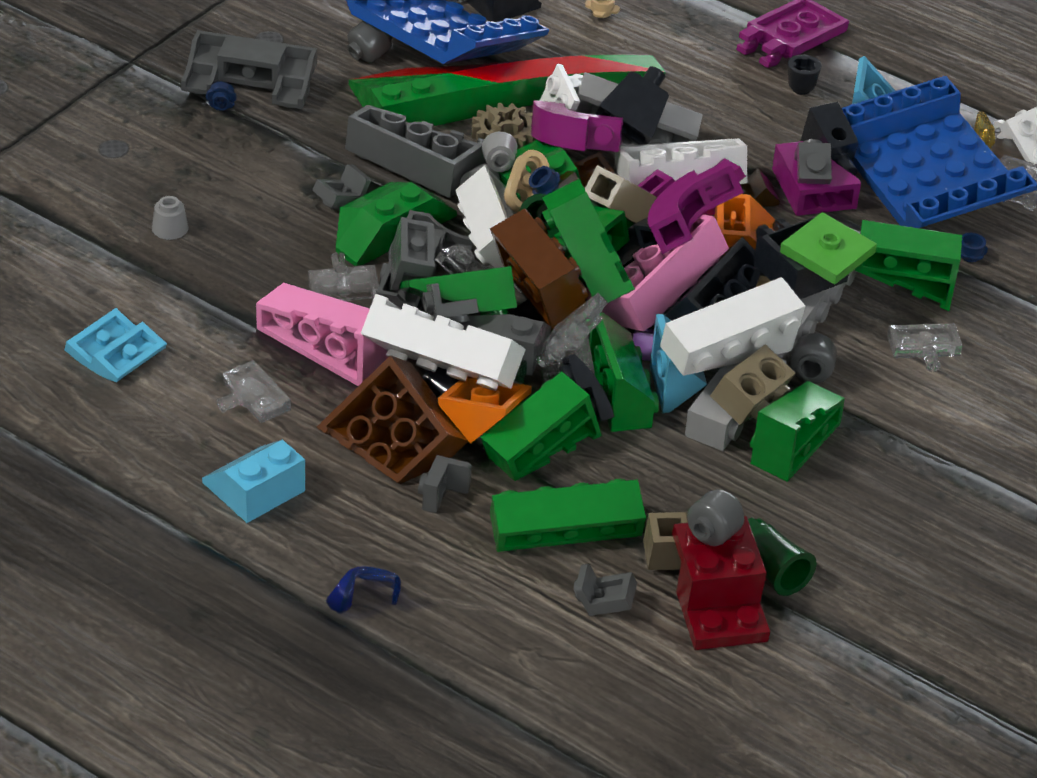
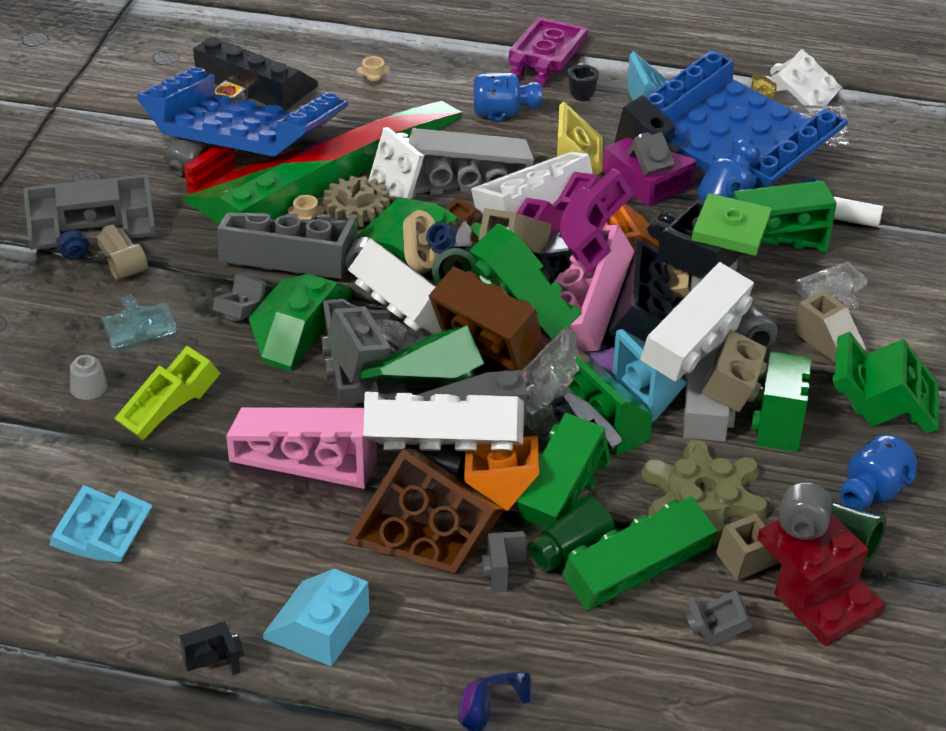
camera: 20 degrees left, 0 degrees up
(149, 471) = (211, 645): none -> black bracket
(229, 249) = (166, 391): none -> lime slope
(240, 184) = (138, 323): none -> clear light blue plate
(254, 391) = (267, 527): clear plate -> none
(259, 117) = (122, 256): none -> dark tan piece
(344, 281) = (290, 388): clear plate -> none
(386, 60) = (209, 166): none -> red tile
(454, 120) = (306, 207): none -> tan plate
(456, 310) = (439, 382): dark grey bracket -> none
(499, 151) = (373, 221): light grey hat -> none
(517, 476) = (578, 527): none -> dark green plant
(575, 130) = (430, 182): magenta arch -> none
(639, 103) = (476, 146): black torso -> none
(683, 465) = (723, 477): none -> olive plate
(712, 65) = (501, 95): none -> blue piece
(760, 129) = (580, 137): none -> light yellow slope
(841, 519) = (878, 472): none -> blue piece
(884, 205) = (730, 174): none -> blue piece
(887, 379) = (822, 321): none -> dark tan slope
(906, 443) = (887, 383): none -> green bracket
(999, 279) = (858, 212): none -> white cylinder

